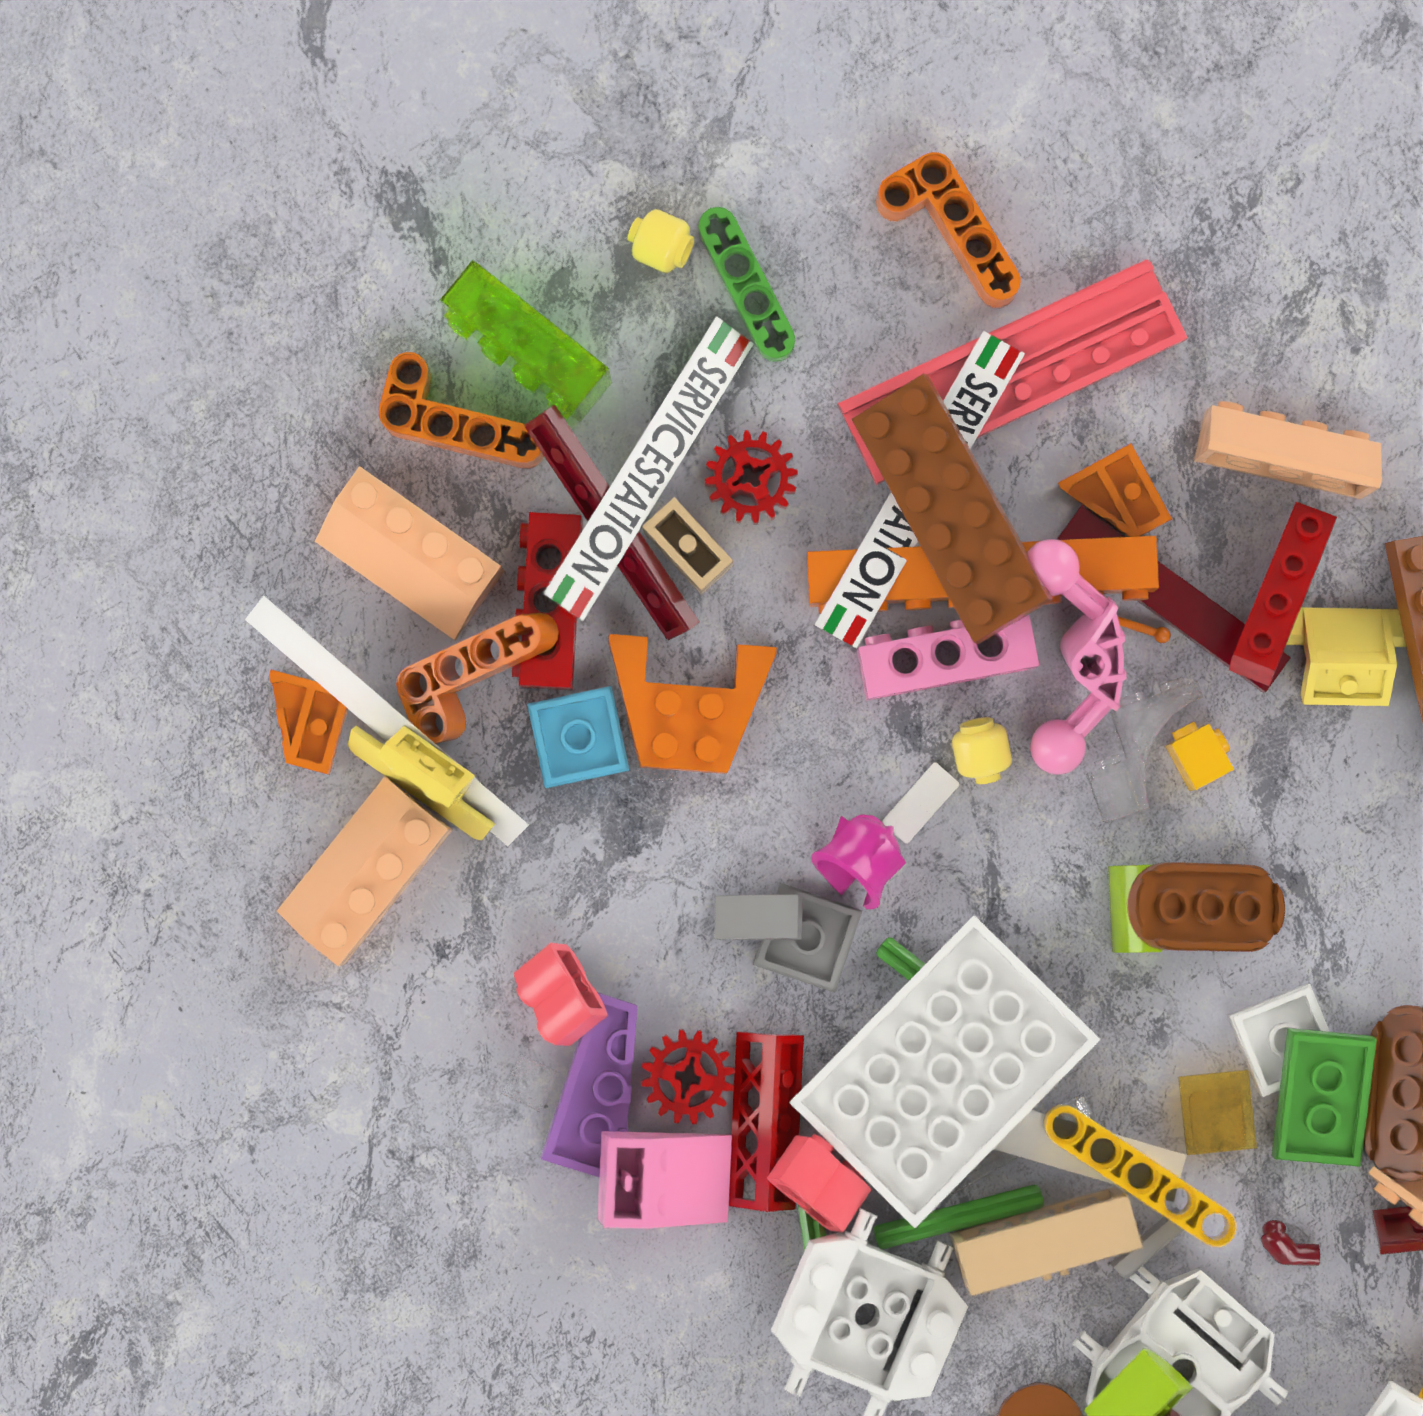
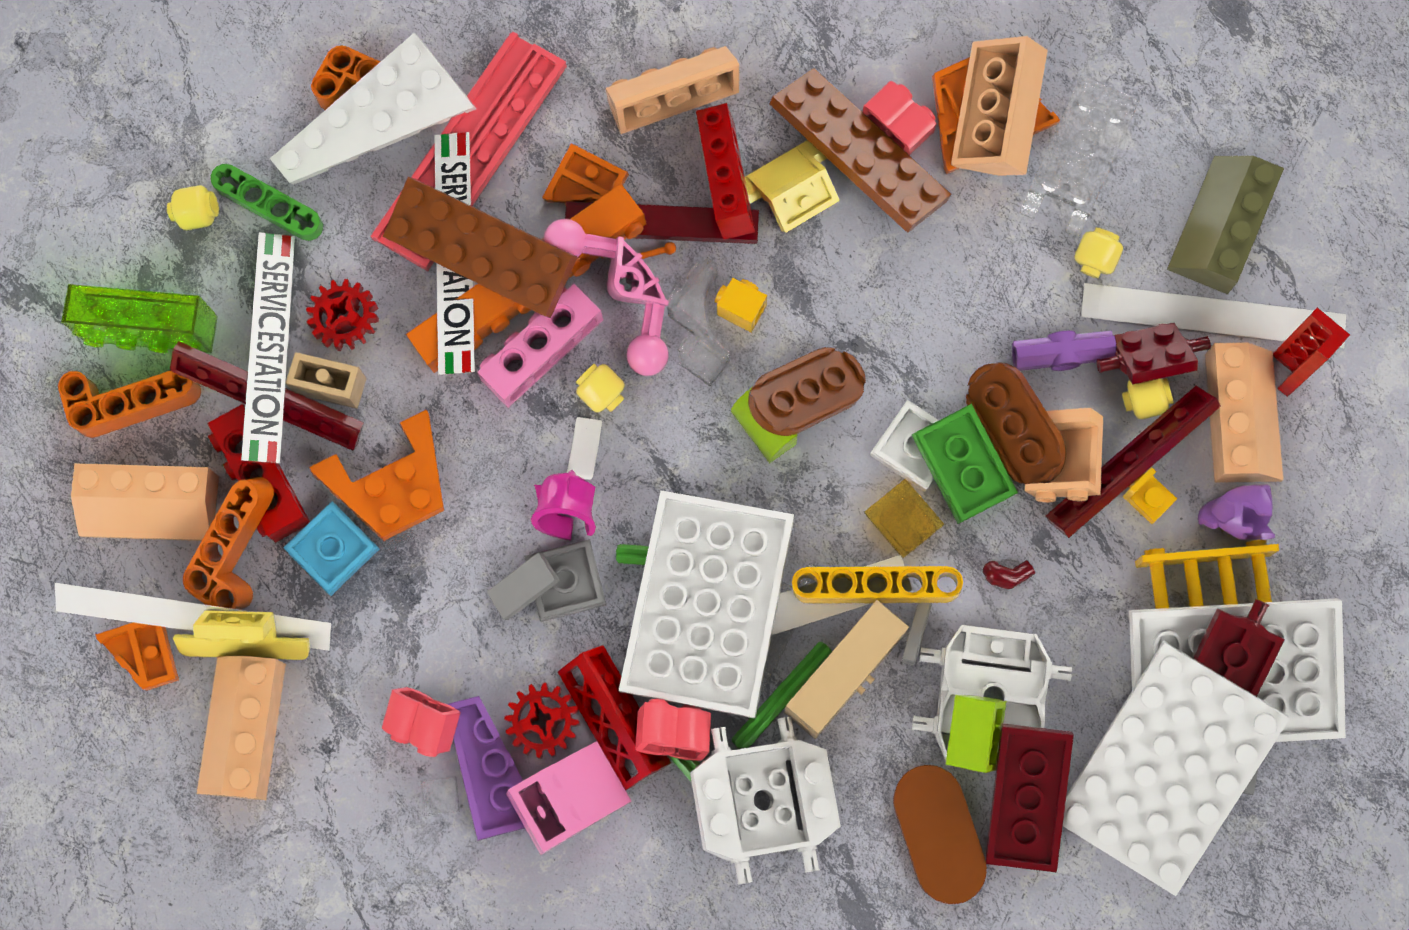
camera: 30 degrees left, 10 degrees down
(954, 265) = (384, 107): none -> white wing

